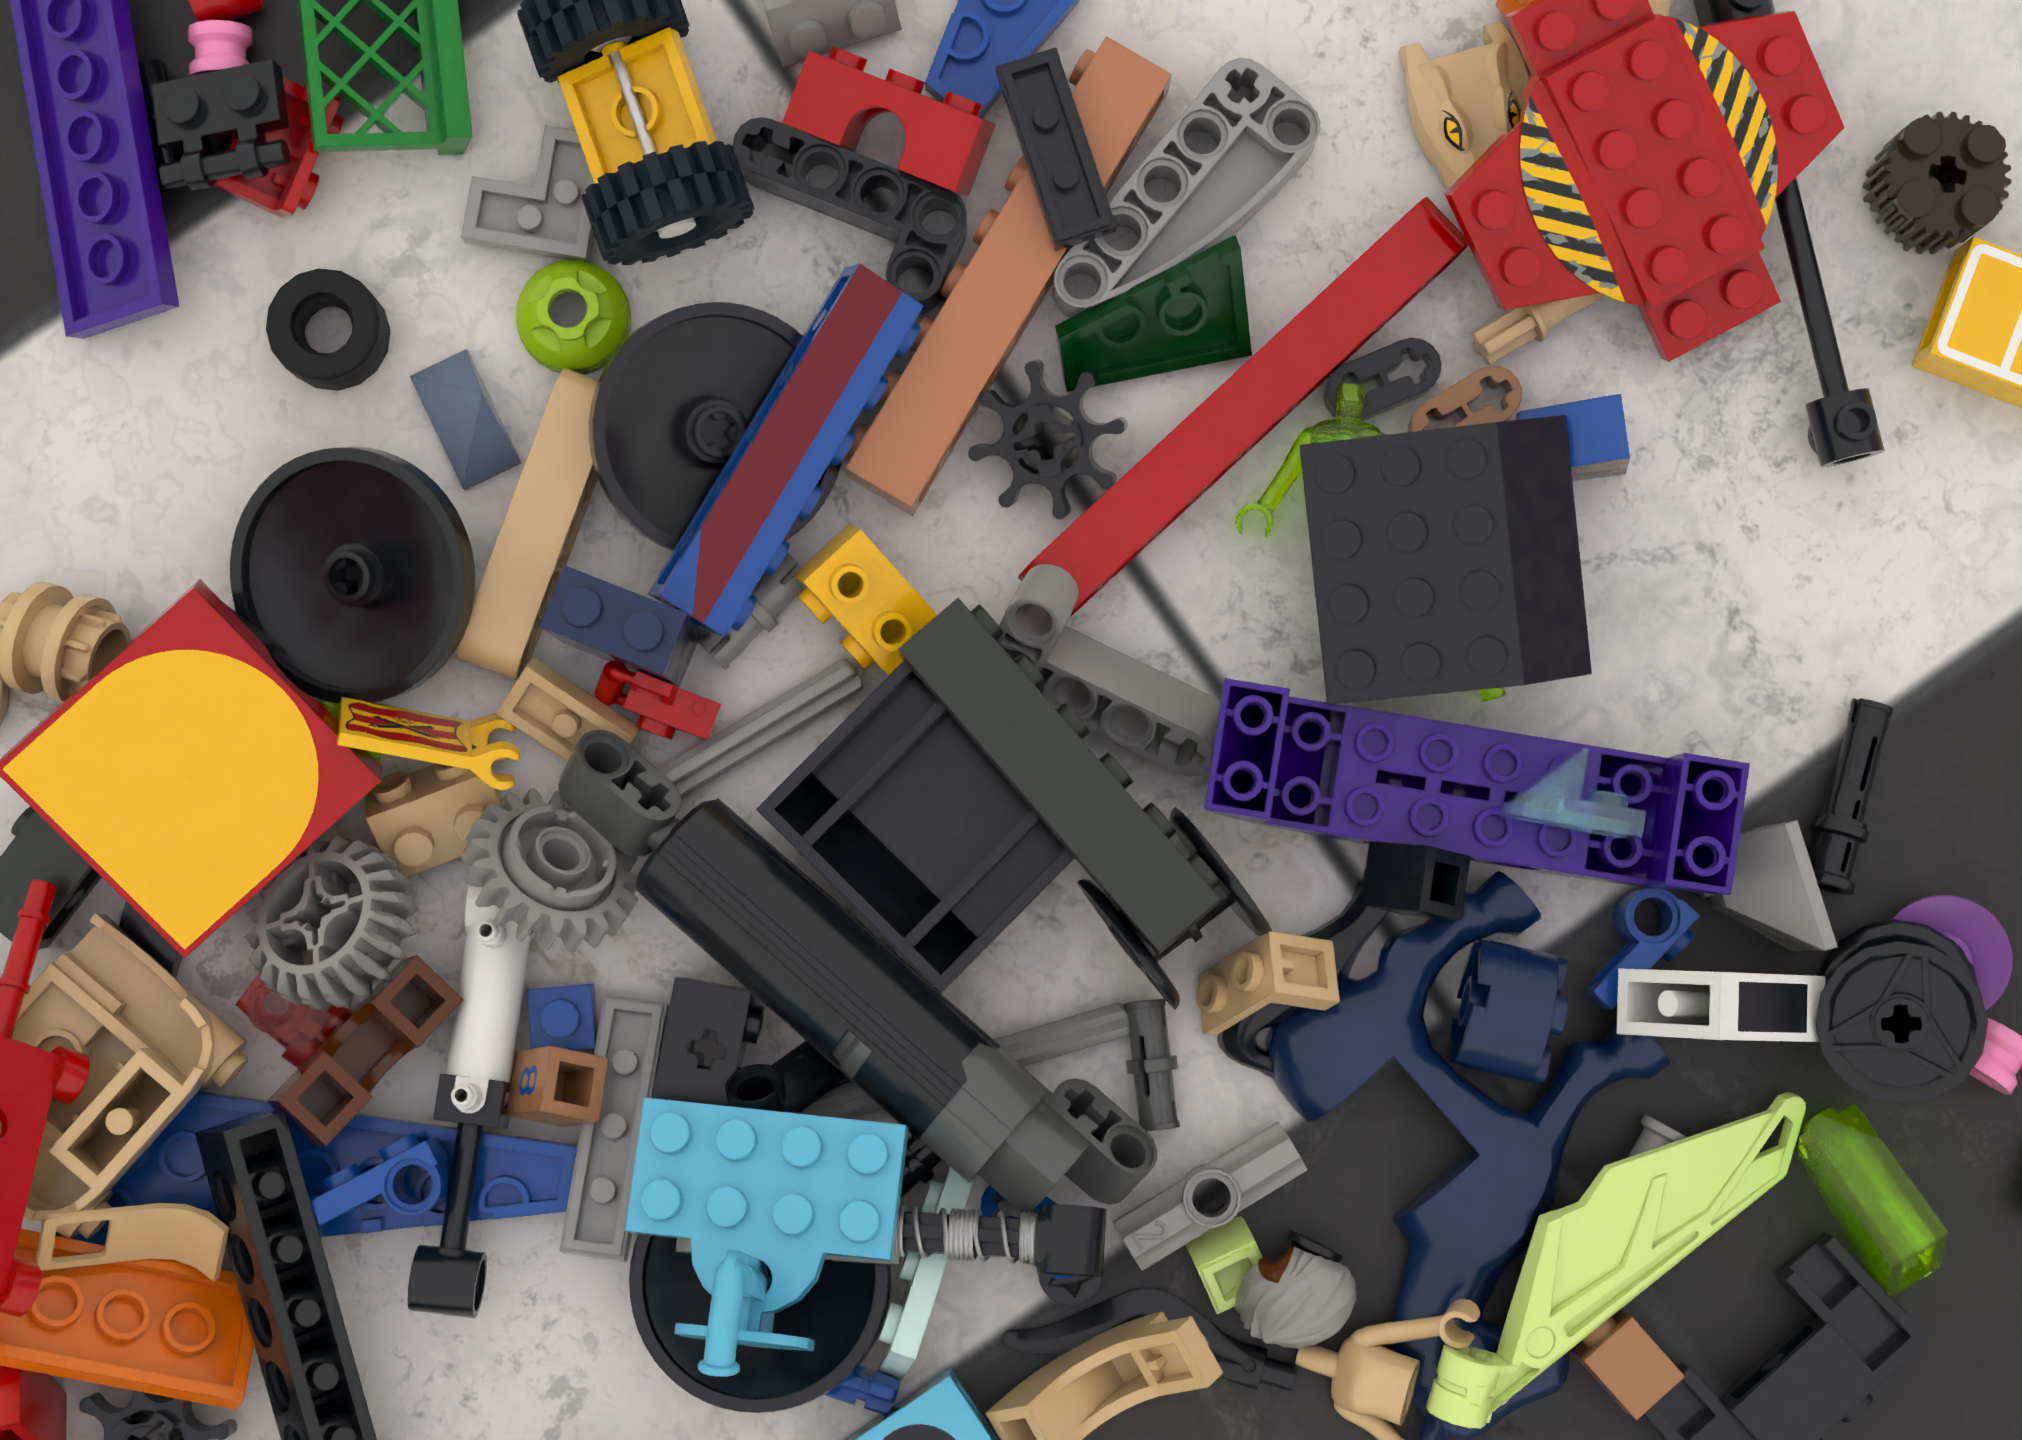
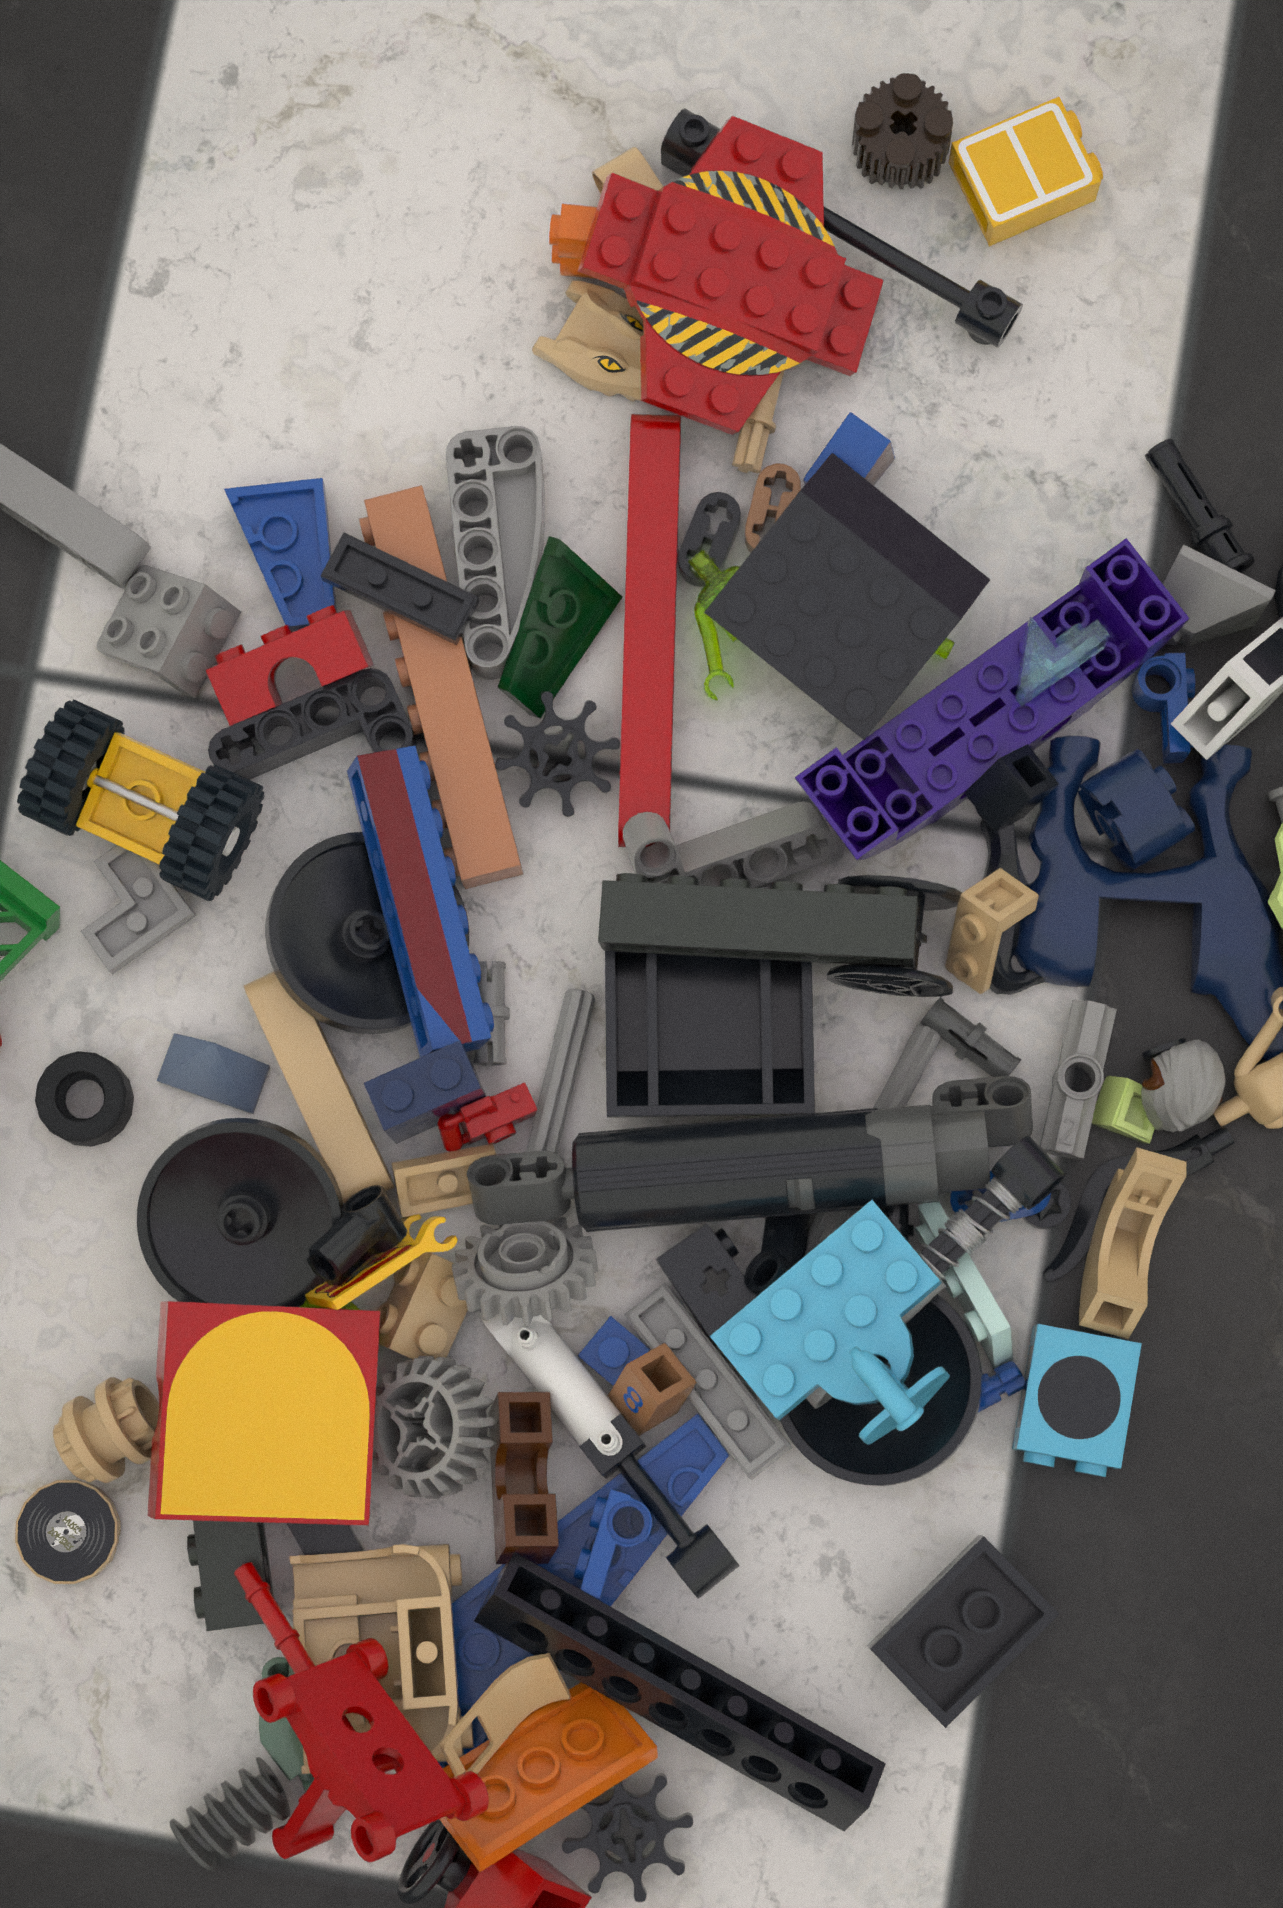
camera: 35 degrees left, 5 degrees down
(297, 1029) = (469, 1509): clear red plate -> none
(449, 694) = (365, 1230): none -> black piece
(595, 338) = (229, 976): lime piece -> none
(865, 597) = (546, 942): yellow brick -> none

